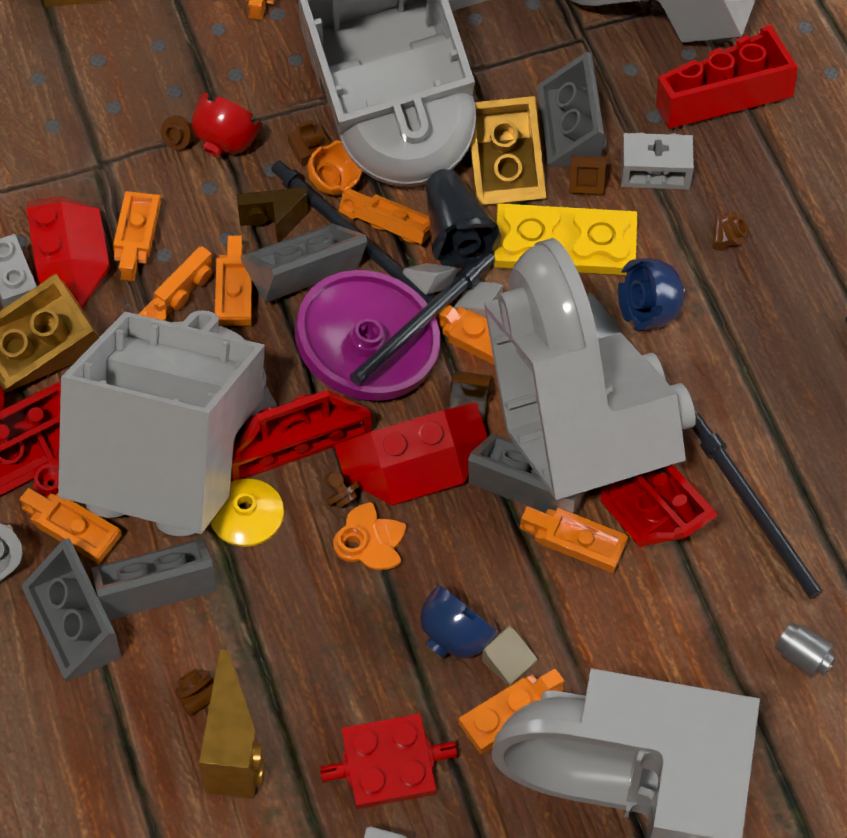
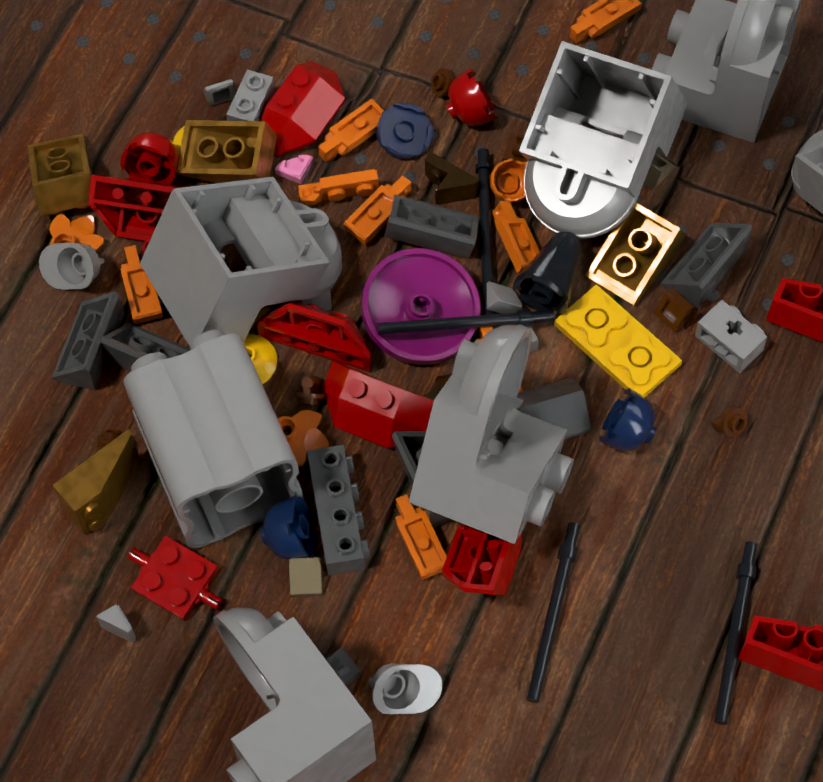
camera: 45 degrees right, 5 degrees up
(109, 306) = (295, 168): none -> bright pink tile
(186, 198) = (404, 131): none -> dark blue tile
(310, 589) = (212, 436): none -> light grey brick
(476, 572) = (336, 510): none -> dark grey brick
(487, 719) = (288, 605): orange hinge -> none
(706, 666) = (405, 688): none -> light grey piece
(806, 650) = (484, 728): flat silver brick -> none

